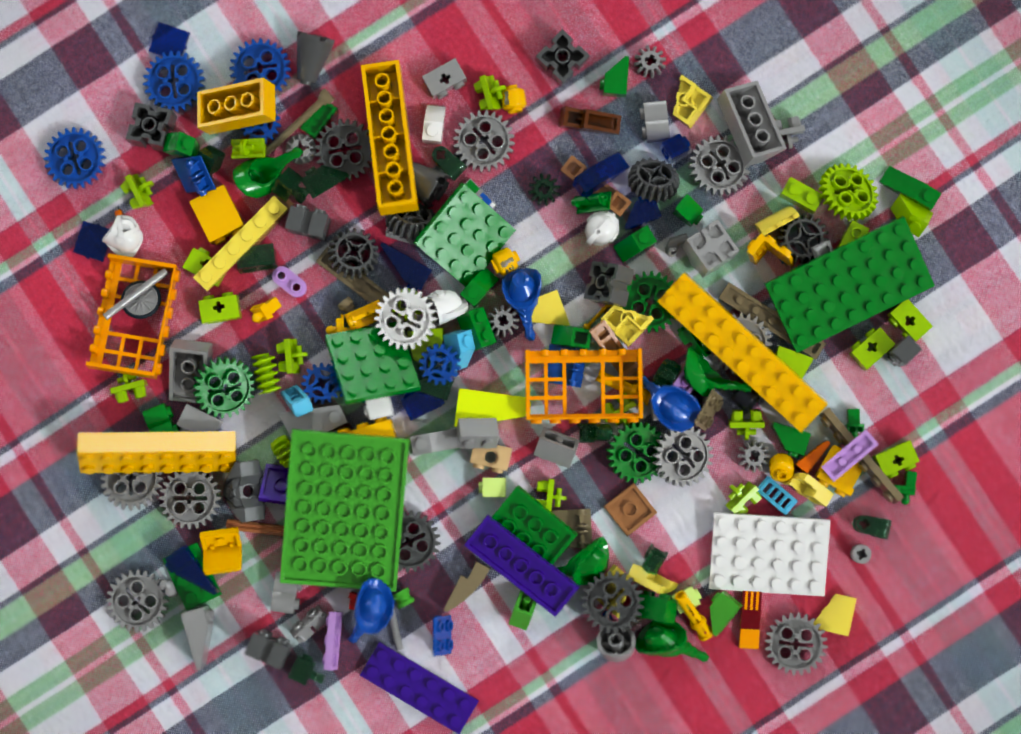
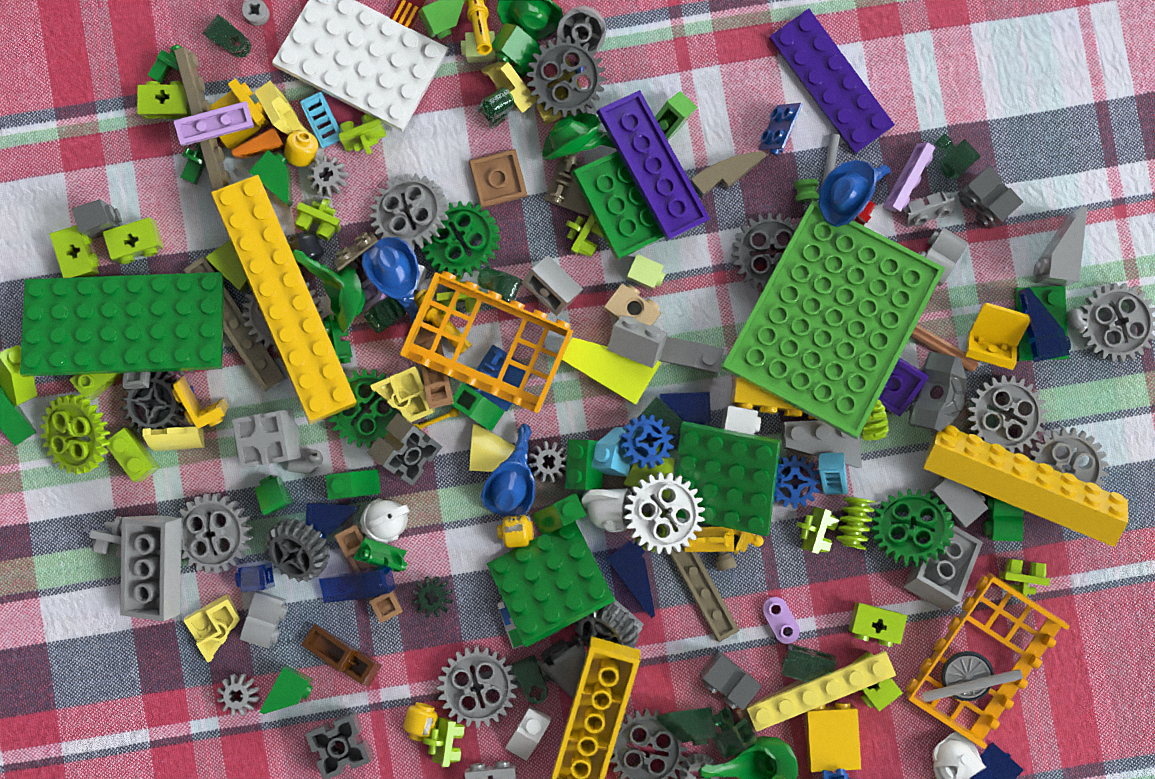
camera: 160 degrees left, 0 degrees up
(264, 310) = (826, 597): yellow piece -> none
(359, 249) = (681, 622): dark grey gear -> none

